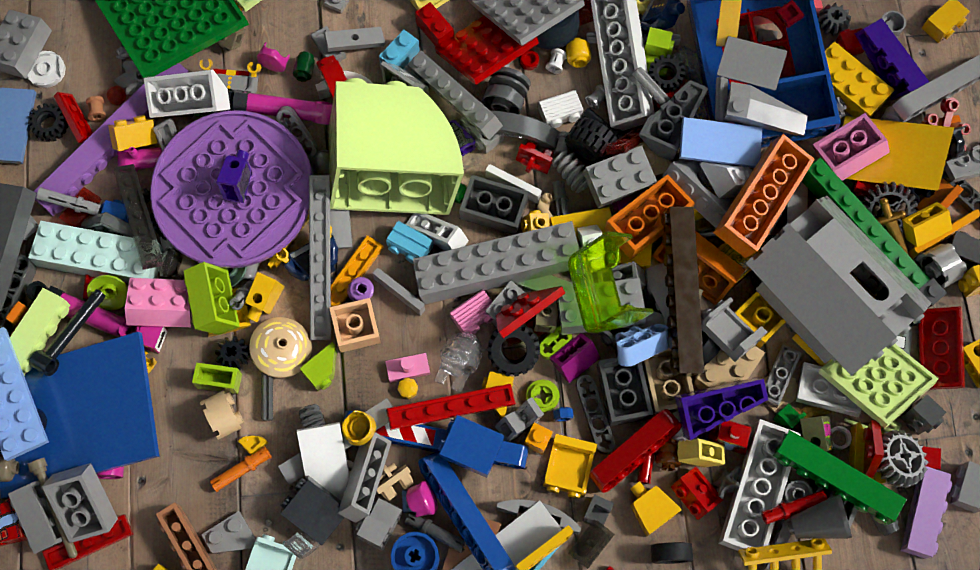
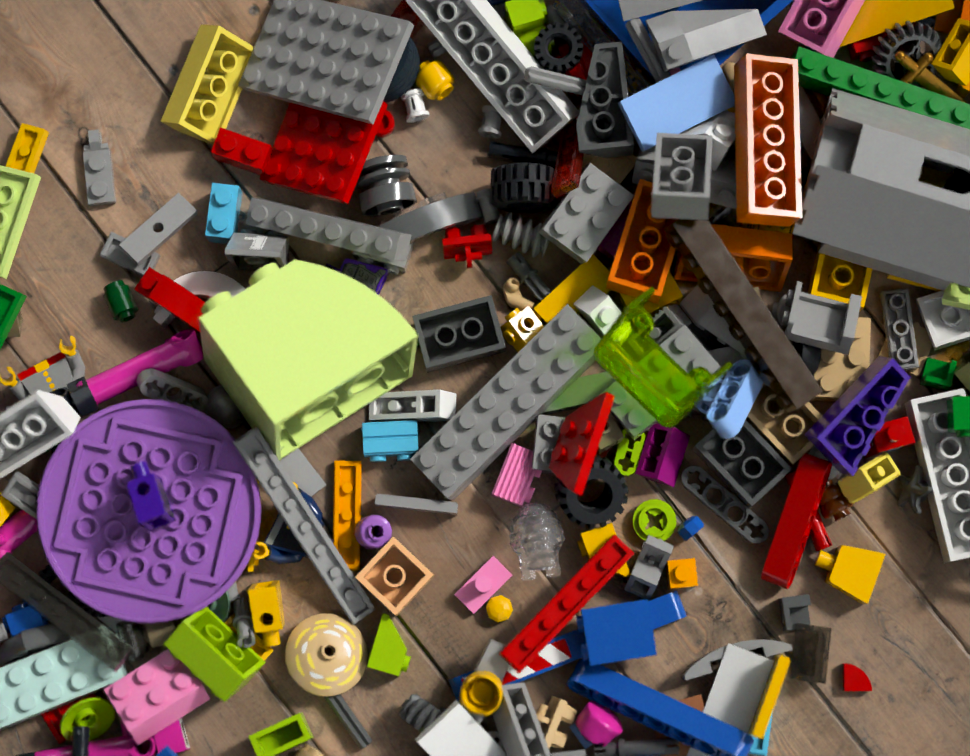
camera: 30 degrees left, 10 degrees up
(233, 346) = (283, 704): black gear -> none
(272, 59) = (77, 316): dark pink hair -> none
(497, 175) = (462, 292): white tile -> none
(561, 109) = (459, 164): white brick -> none
(569, 466) = (733, 582): yellow panel -> none
(672, 552) = (903, 608): black tyre -> none
(694, 181) = (682, 176): none -> light grey brick
(696, 493) = (888, 523): red bracket -> none

